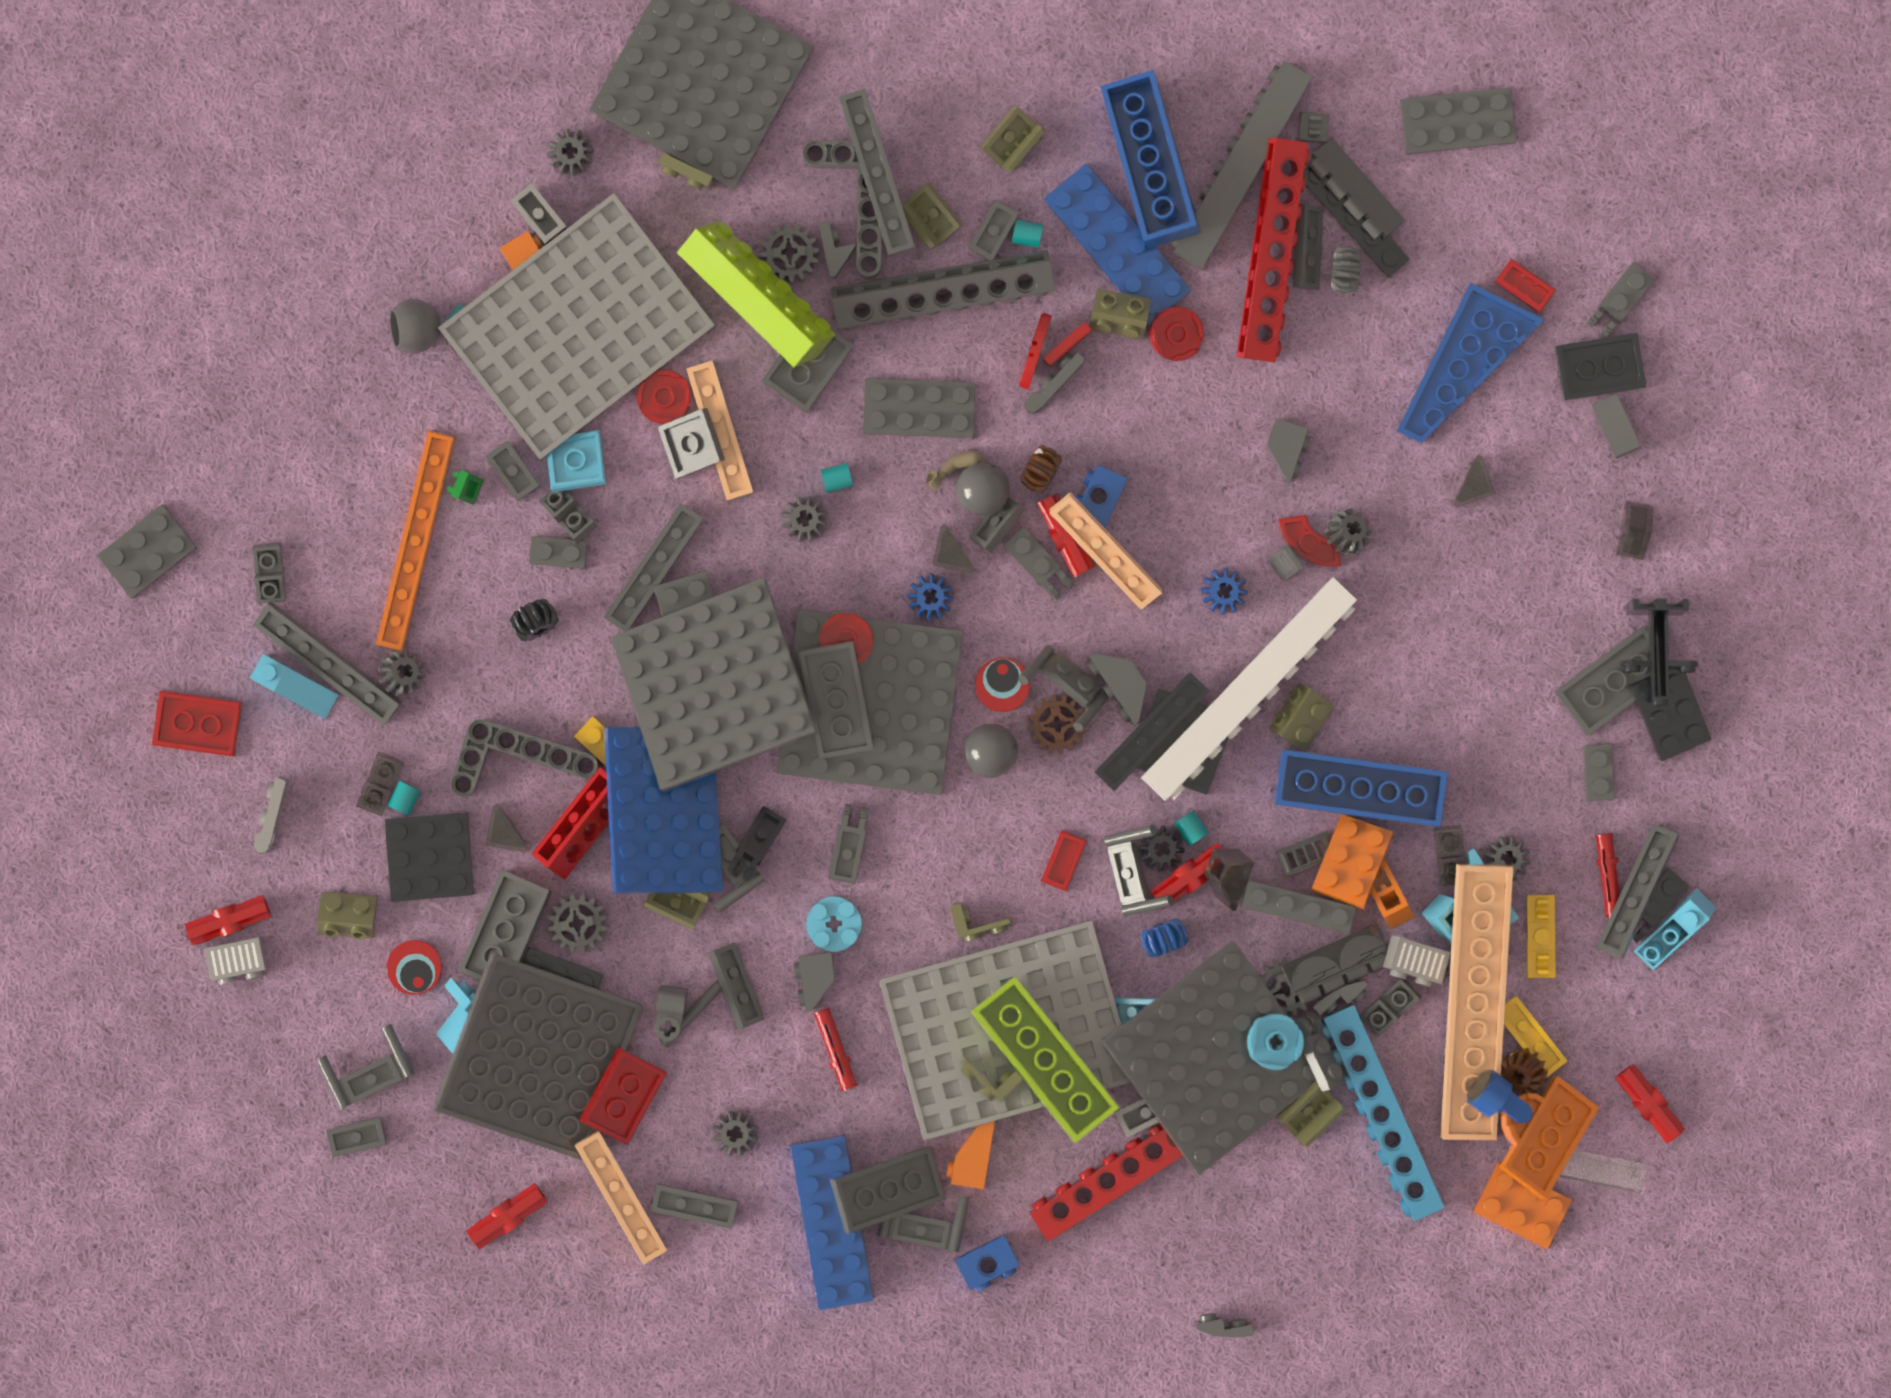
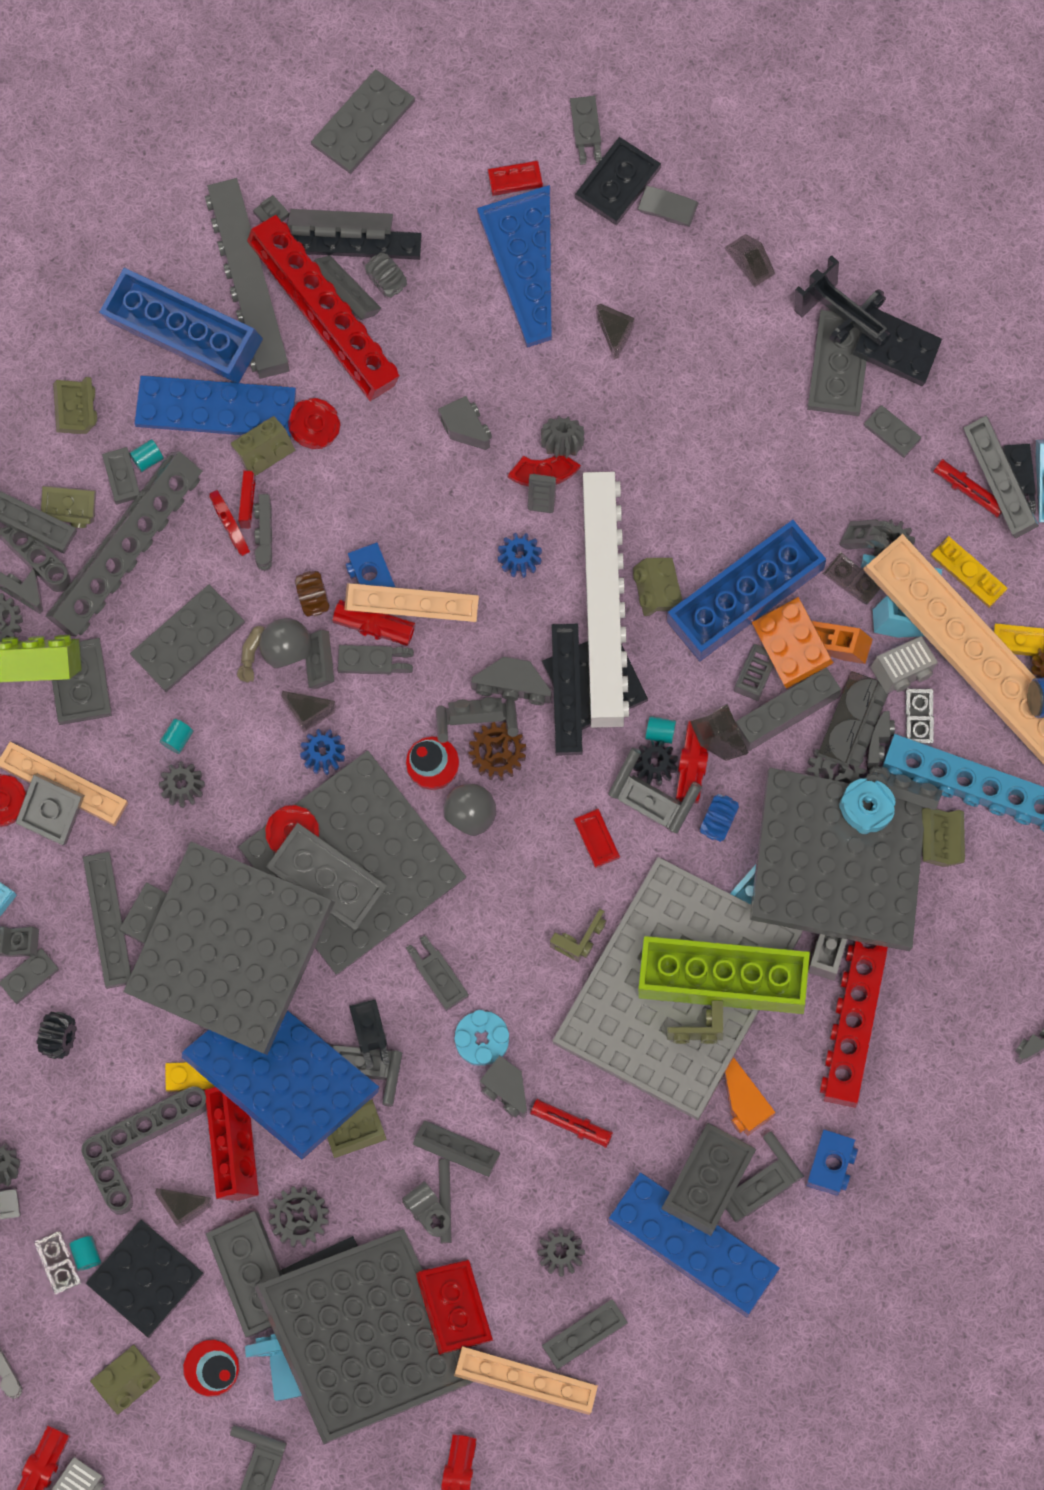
camera: 45 degrees left, 15 degrees down
(1489, 836) = (866, 534): none -> dark grey hinge

